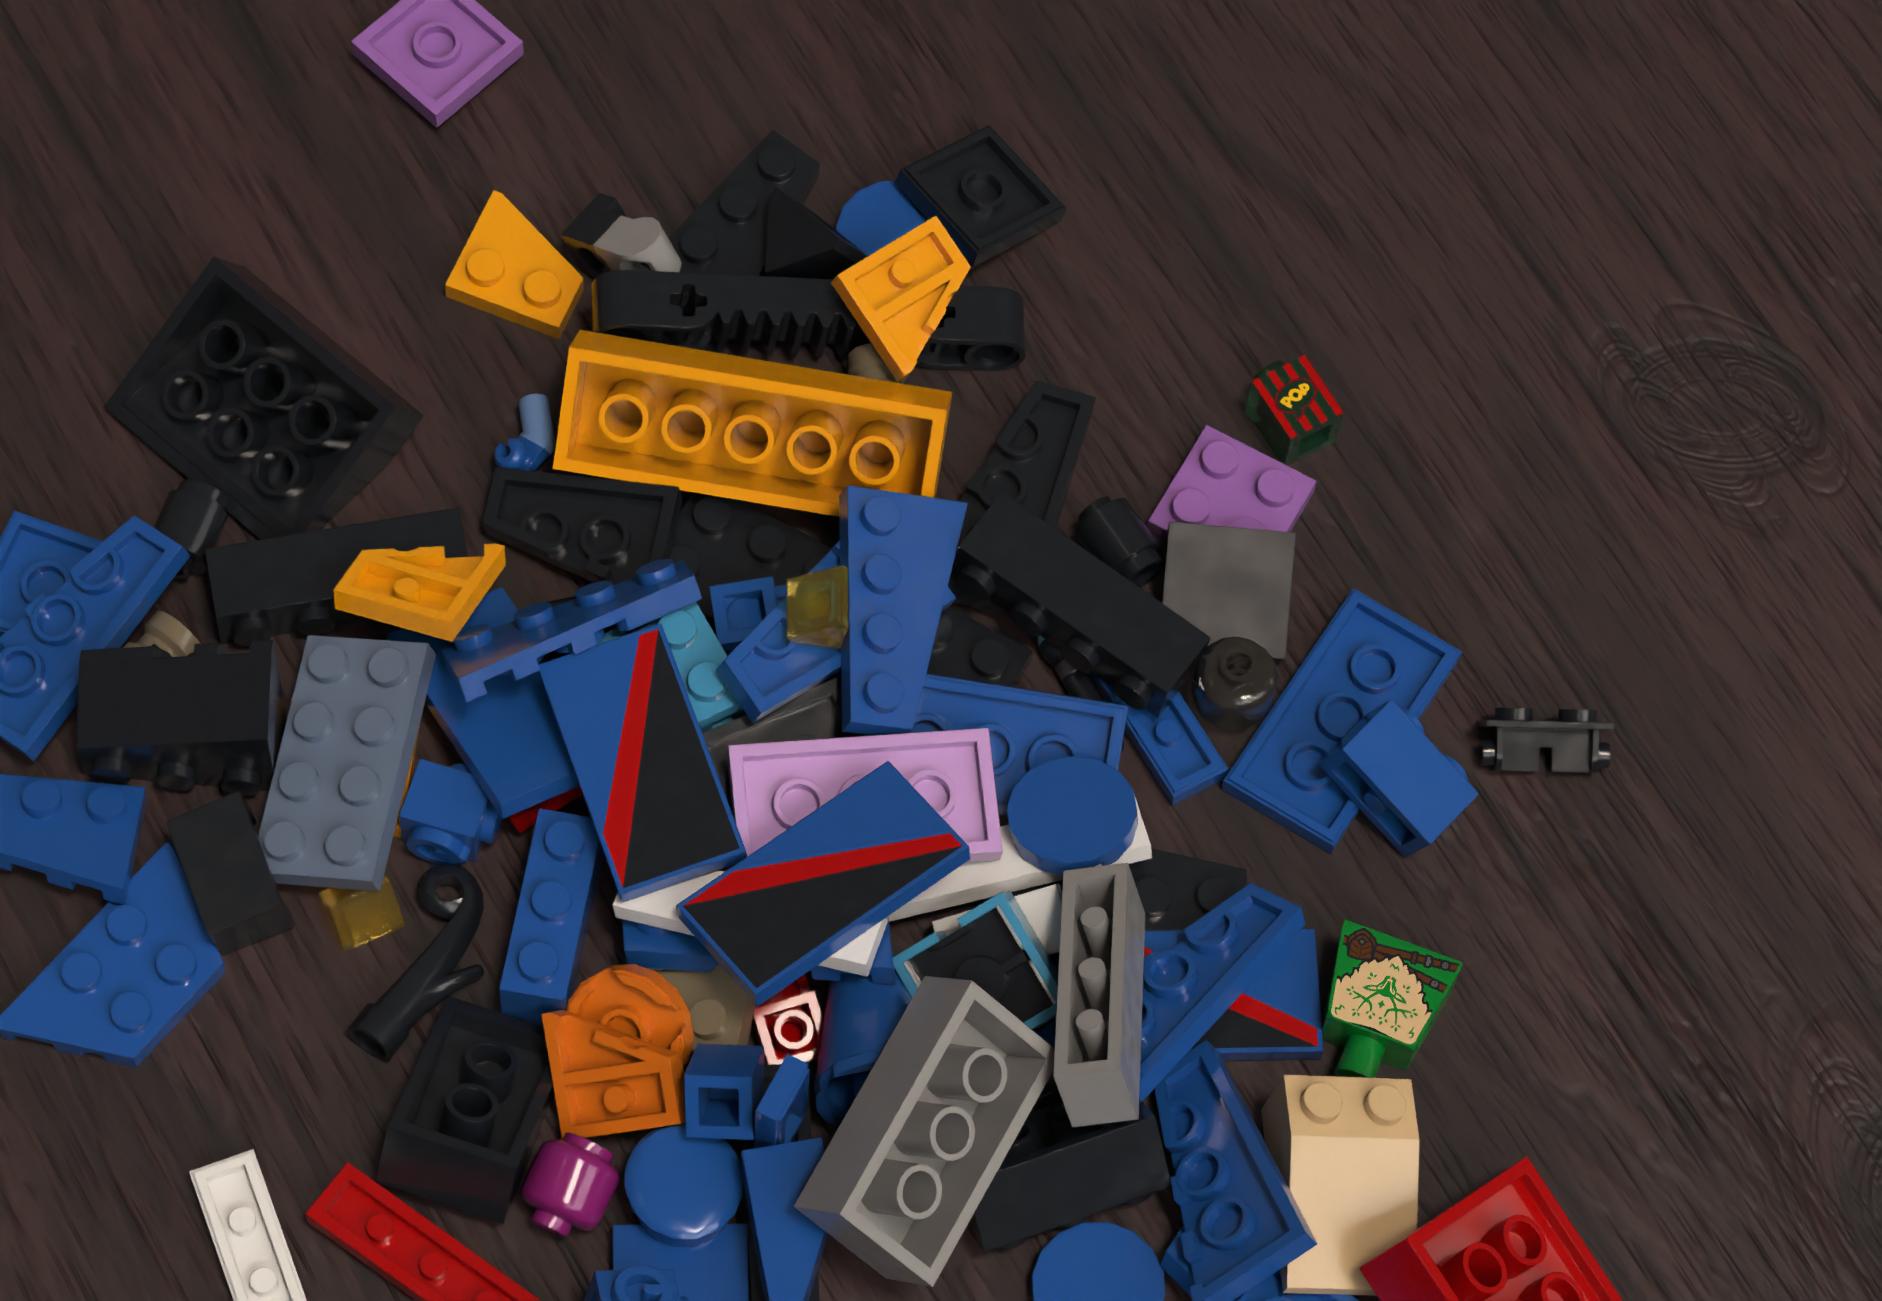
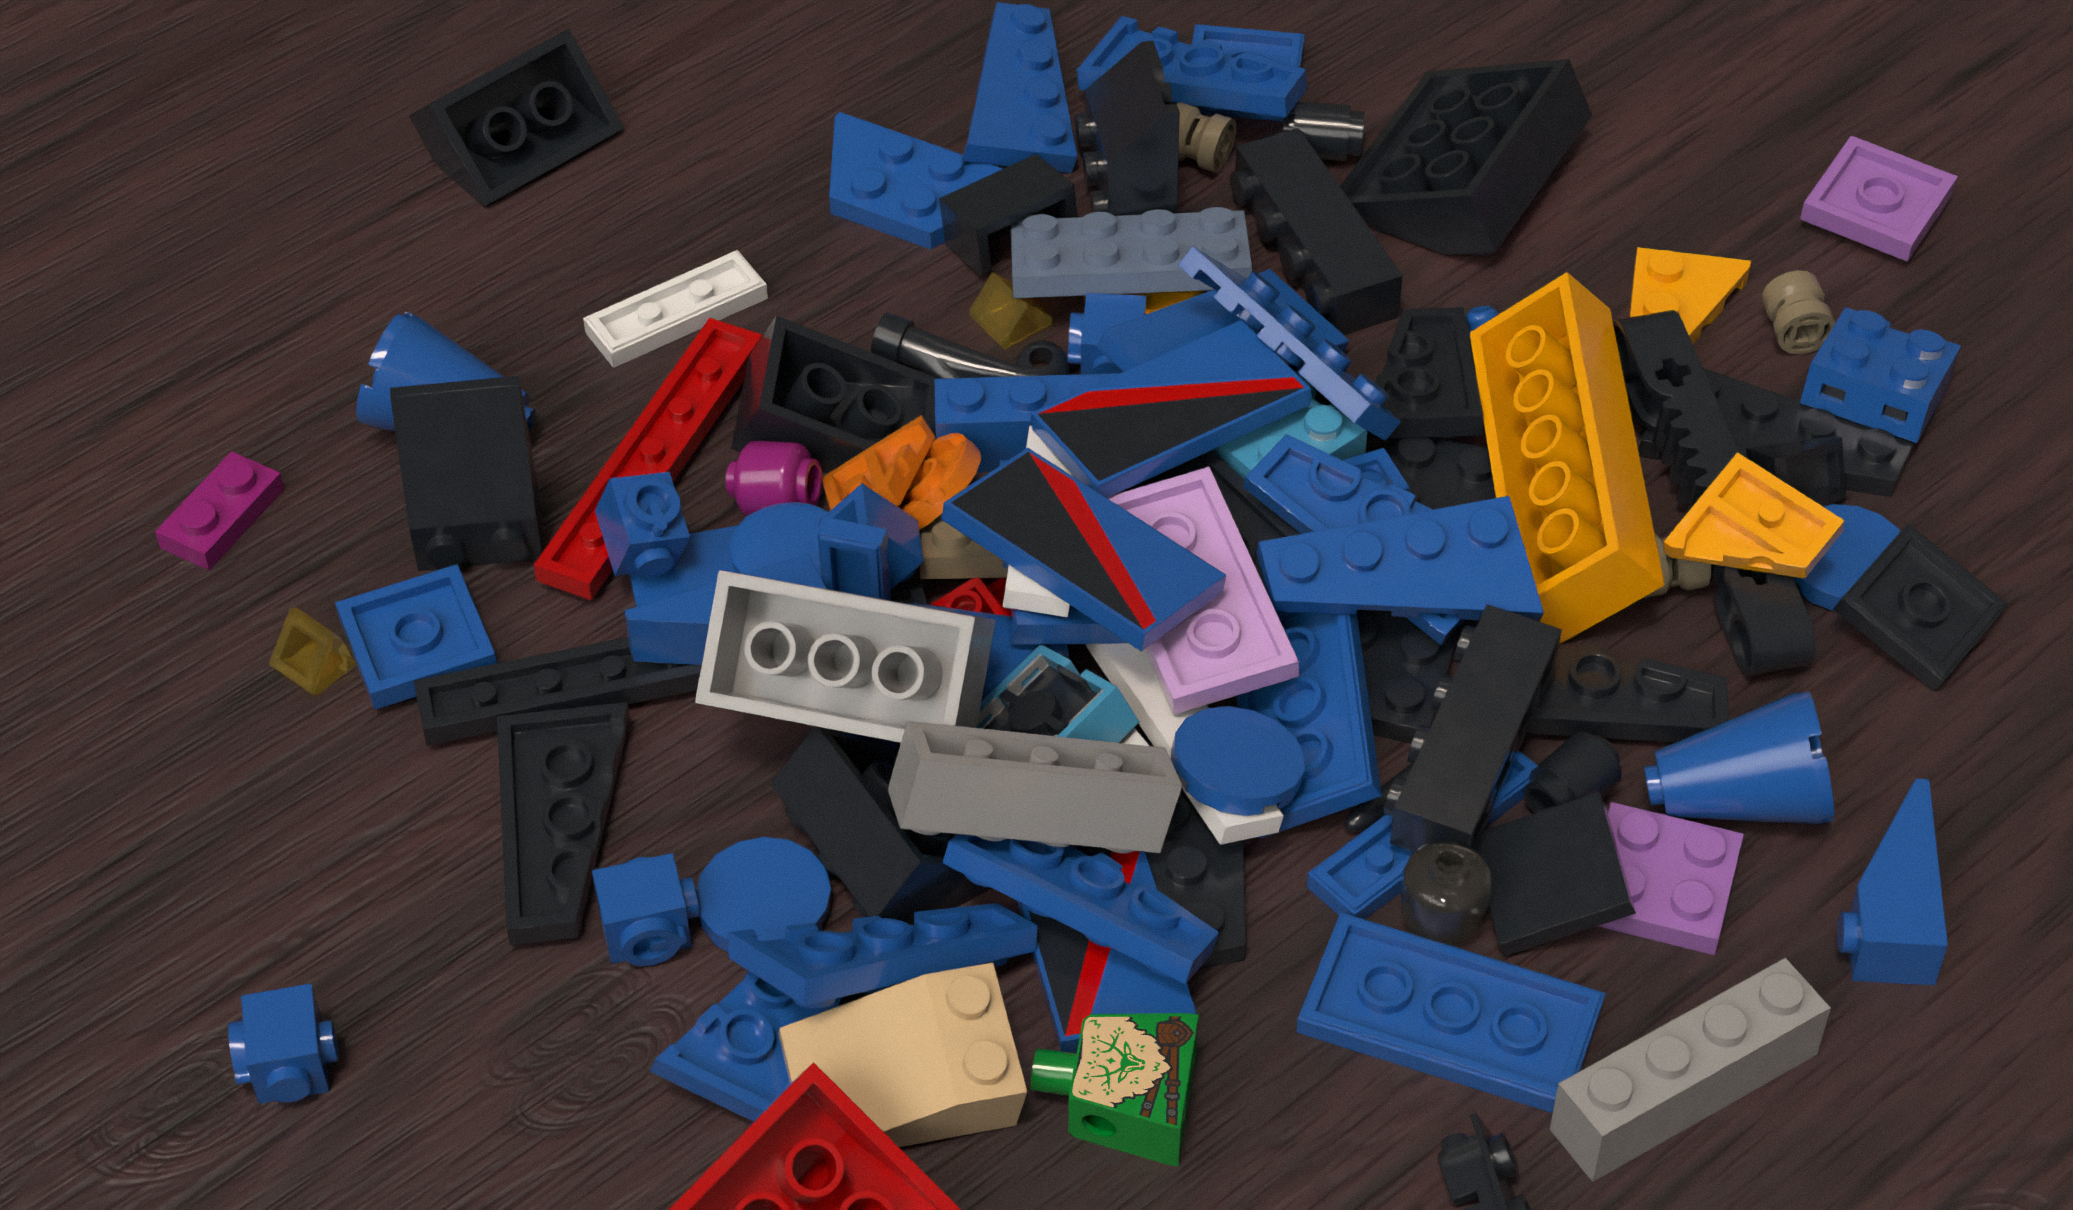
camera: 85 degrees right, 15 degrees down
(419, 587) = (1301, 251): light orange wing -> none
(581, 169) = (1798, 311): none -> dark tan wheel
(618, 240) = (1731, 340): leg -> none
(691, 128) = (1880, 374): none -> blue piece
(818, 607) = (1369, 497): clear yellow slope -> none
(1153, 391) = (1748, 768): none -> blue cone
(1293, 409) = (1790, 902): clear green brick -> none
(1298, 319) = (1898, 905): none -> blue slope
(1399, 777) = (1384, 1047): blue brick -> none
(1456, 544) = (1688, 1069): none -> light grey brick

